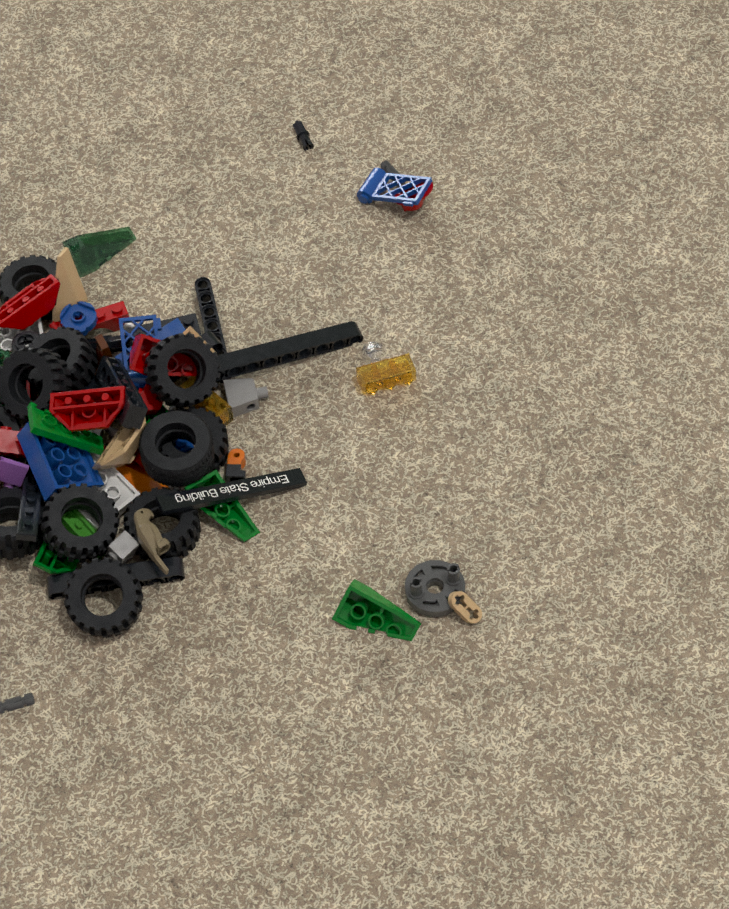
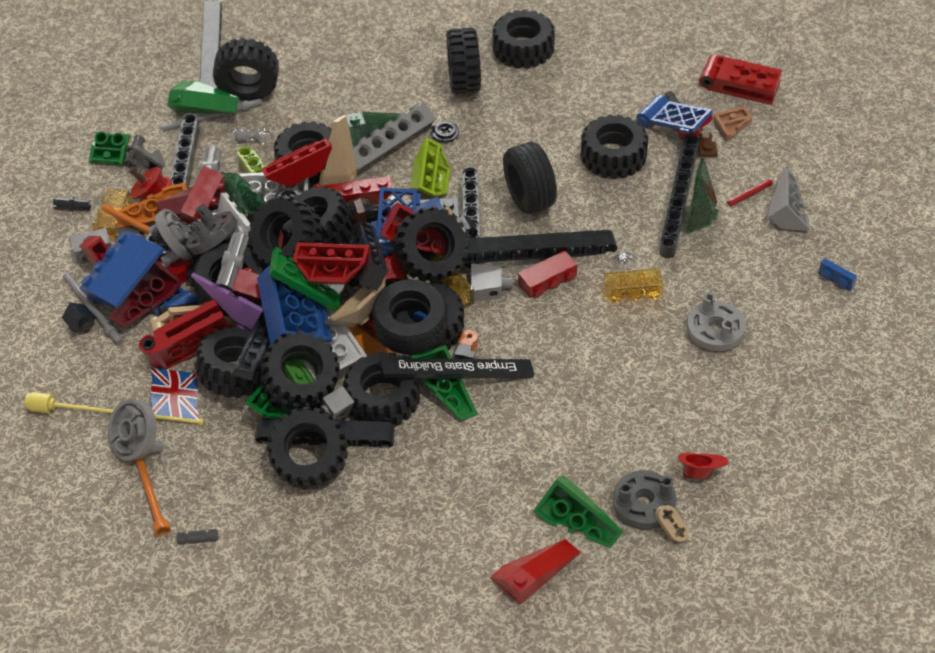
camera: 10 degrees right, 5 degrees down
(83, 309) = (349, 176): blue plate -> none
(141, 229) = (420, 113): none -> light grey brick
(150, 537) = (366, 397): dark tan animal -> none
(162, 286) = (431, 170): none -> lime wedge
(163, 236) = (439, 128): none -> gear
(172, 163) = (463, 60): none -> black tyre
(232, 141) = (518, 51): none -> black tyre
(264, 280) = (530, 177): none -> black tyre
(300, 377) = (547, 274): none -> brick
(303, 135) = (594, 57): black axle -> none
(341, 678) = (529, 573): none -> red wedge
(344, 247) = (614, 161): none -> black tyre
(414, 273) = (679, 197): none -> black beam
(432, 216) = (707, 147): none -> reddish brown plate
(439, 277) = (703, 201): none -> clear green wedge
(453, 136) = (741, 79): none -> red hinge
(453, 183) = (732, 121): none -> nougat wing
(472, 389) = (715, 313): none -> light grey piece
(482, 257) = (750, 192): none -> red bar
(482, 545) = (701, 465): none -> red piece
(520, 264) = (786, 204): none -> light grey wedge
(579, 329) = (837, 274): none -> blue plate

